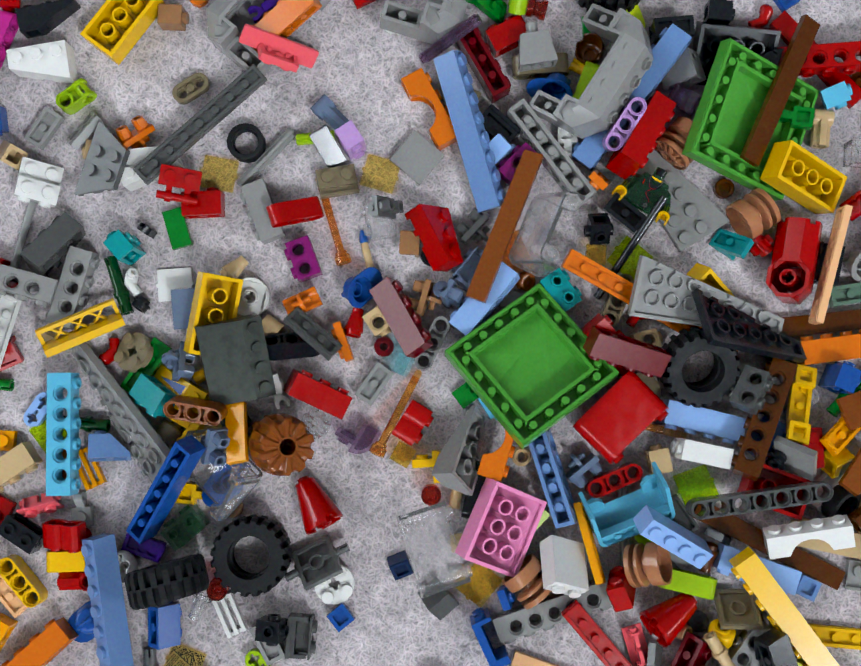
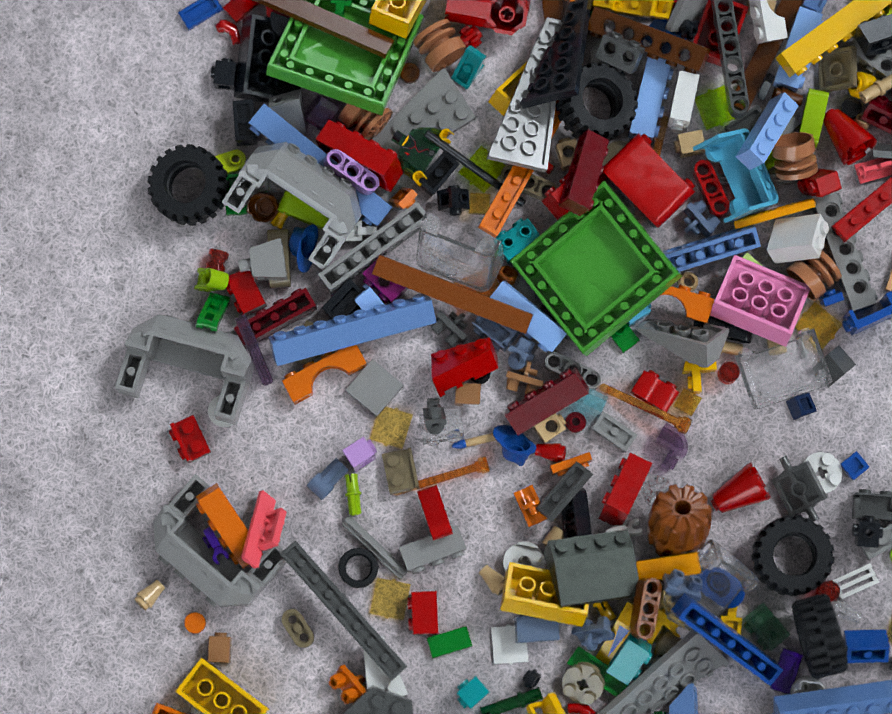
camera: 90 degrees left, 5 degrees down
(131, 281) = (507, 691): white arm -> none
(147, 230) = (450, 675): black tile -> none
(181, 178) = (401, 629): red plate -> none
(307, 257) = (481, 500): magenta brick -> none
(327, 146) = (364, 480): tile -> none

